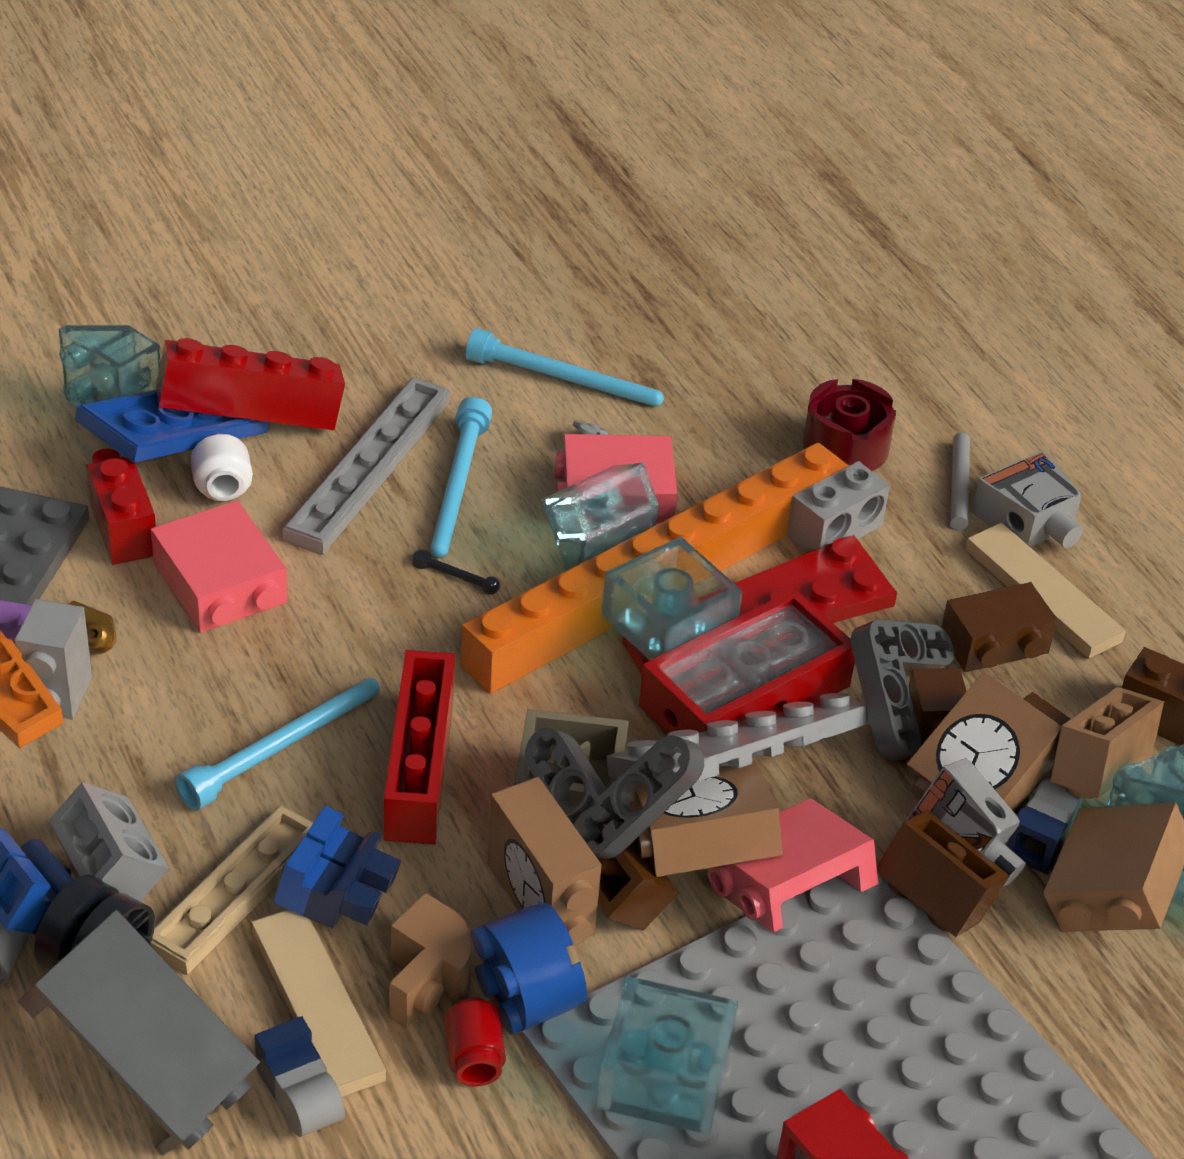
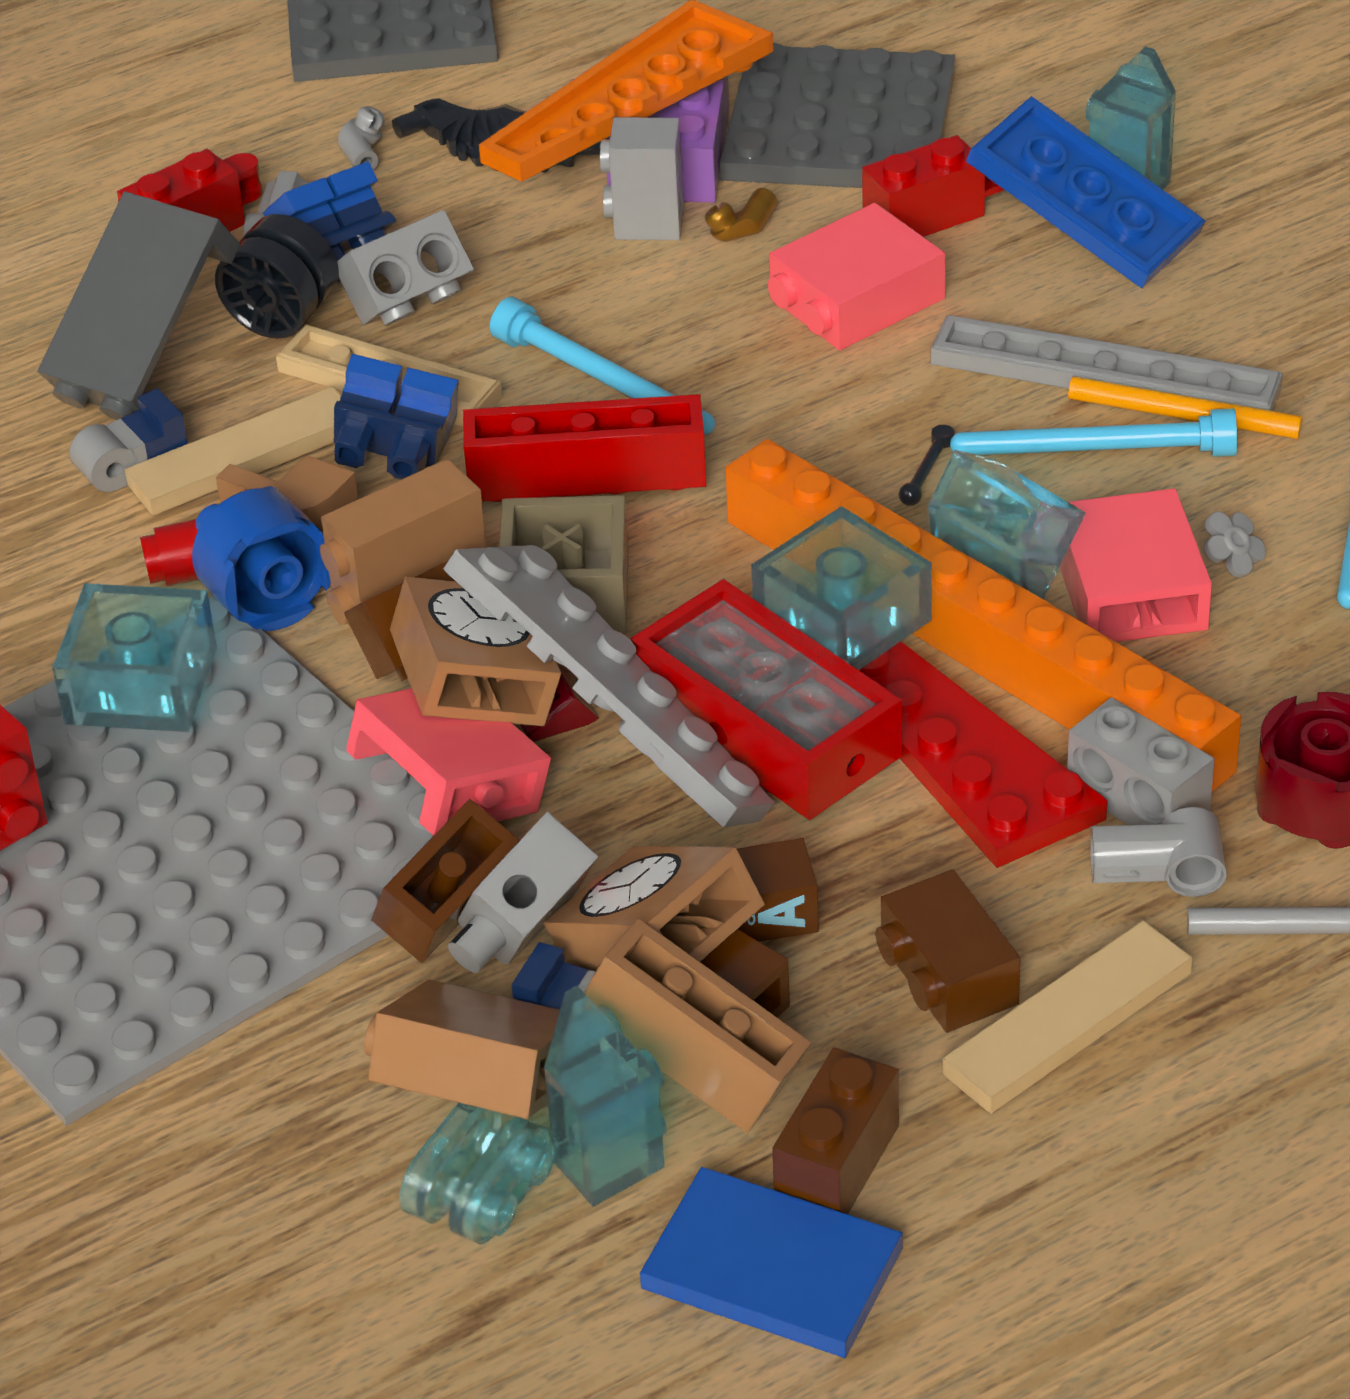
camera: 90 degrees right, 0 degrees up
(221, 467) = (1024, 246): white head -> none
(249, 384) = (1156, 224): red brick -> none
(427, 435) = (1182, 406): none -> light orange bar
(611, 804) = (467, 526): dark grey beam -> none
(885, 665) = (794, 805): dark grey beam -> none
(907, 521) = (1180, 850): none -> light grey piece
(1031, 501) = (1249, 986): light grey torso -> none

